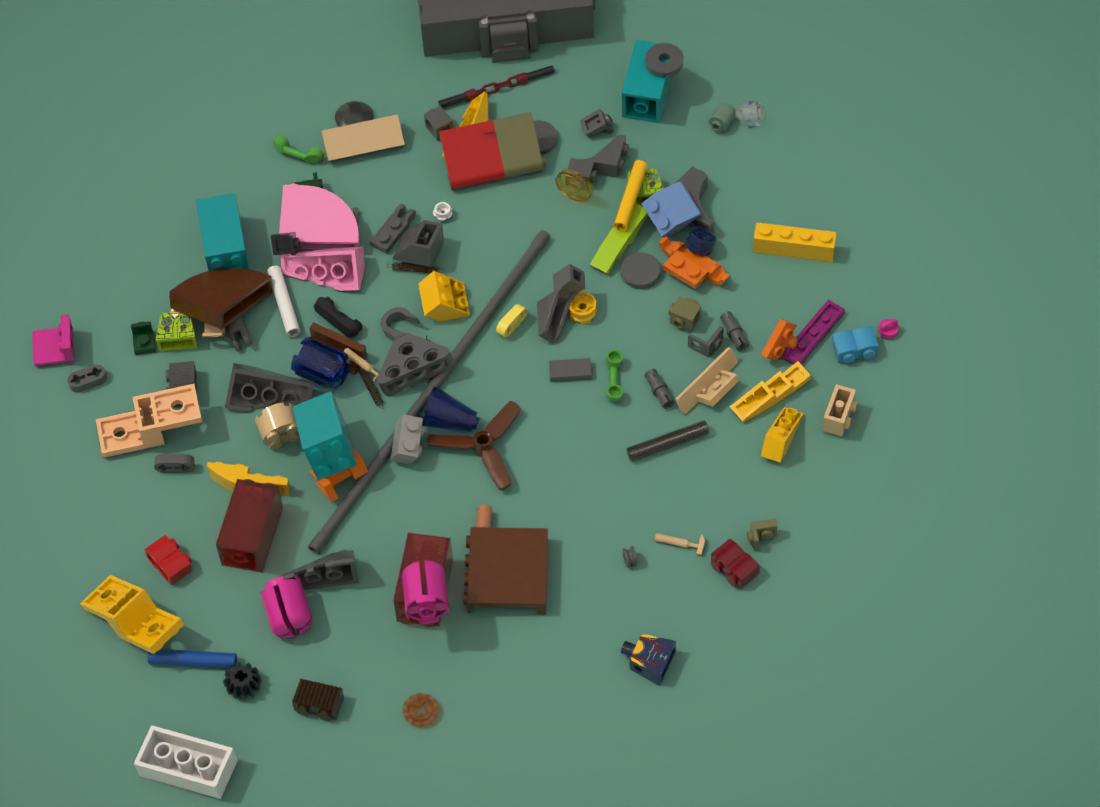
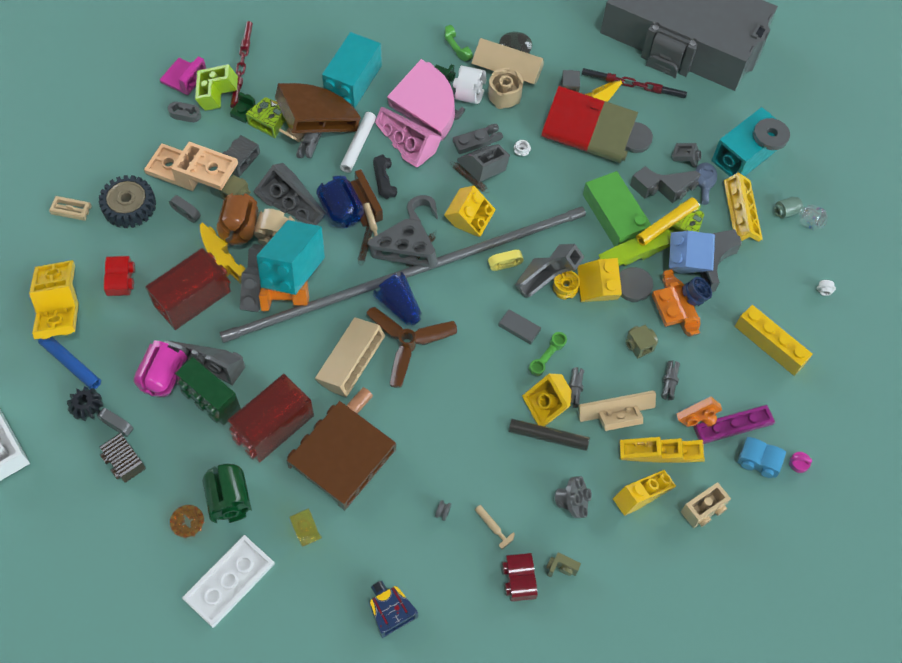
camera: 30 degrees right, 5 degrees up
(60, 537) = (68, 210): none -> tan tile
(95, 333) = (212, 83): none -> lime brick
(112, 317) = (245, 45): none -> dark red piece
(112, 506) = (127, 201): none -> wheel
(211, 417) = (235, 185): none -> olive brick
(240, 437) = (237, 219): none -> dark orange cylinder
(283, 677) = (115, 422): none -> dark grey beam
(285, 243) = (388, 100): black bracket -> none
(299, 478) = (251, 281): none -> dark grey arch
(347, 181) = (469, 84): none -> white brick
(347, 595) = (207, 391): none -> dark green brick
(382, 164) = (505, 88): none -> tan brick
(407, 439) = (358, 294): light grey brick -> none
(425, 607) = (247, 431): dark pink cylinder -> none
(440, 676) = (226, 493): none -> dark green cylinder
(444, 488) = (350, 356): none -> tan brick
(496, 729) = (228, 581): none -> white tile
(526, 646) = (305, 527): none -> clear yellow bracket
(573, 185) = (632, 181): clear yellow tile -> none
(573, 213) = (615, 208): none -> bright green brick
(611, 284) = (599, 280): none -> yellow slope
(633, 137) = (707, 179): none -> sand blue piece
(645, 412) = (548, 398): none -> yellow slope
(682, 142) = (742, 207): none -> yellow fence
(707, 347) = (645, 379): dark grey bracket -> none
(729, 474) = (574, 497): none -> dark grey plate
(805, 169) = (826, 287): none -> white plate

